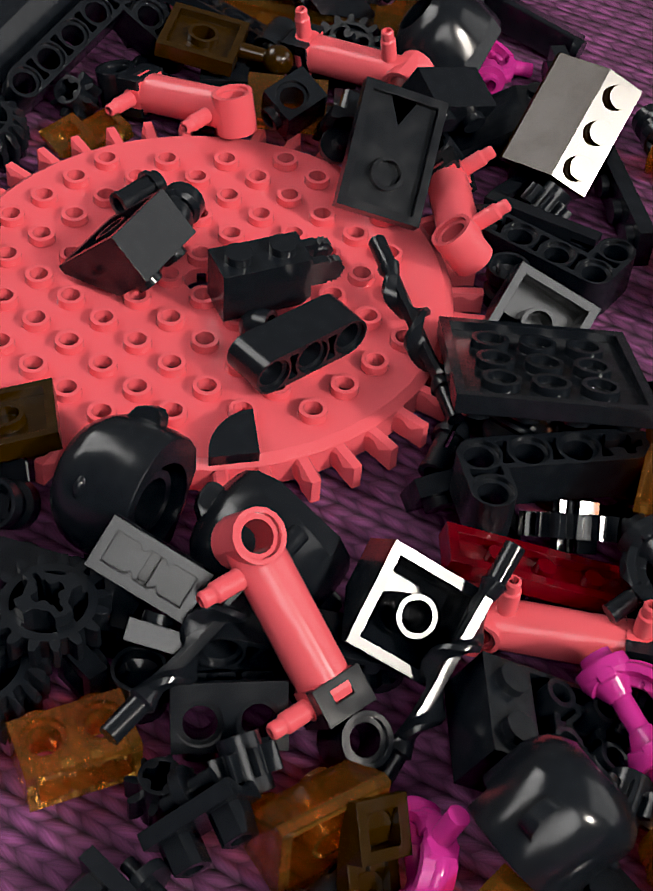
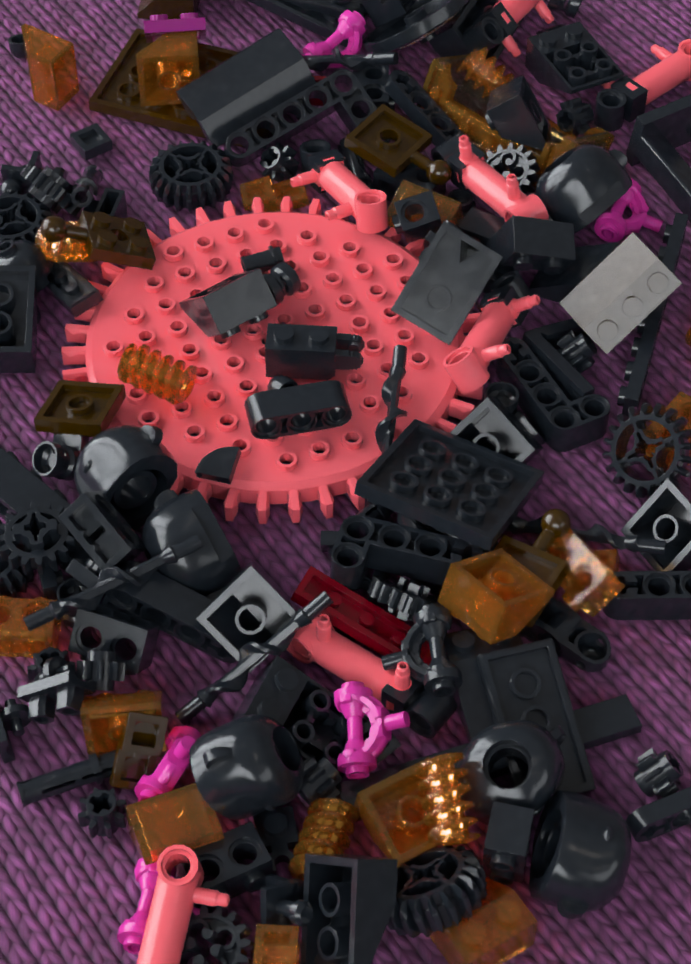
camera: 30 degrees right, 5 degrees up
(92, 351) = (157, 374): none -> clear orange piece
(326, 688) = (164, 608): coral piece -> none

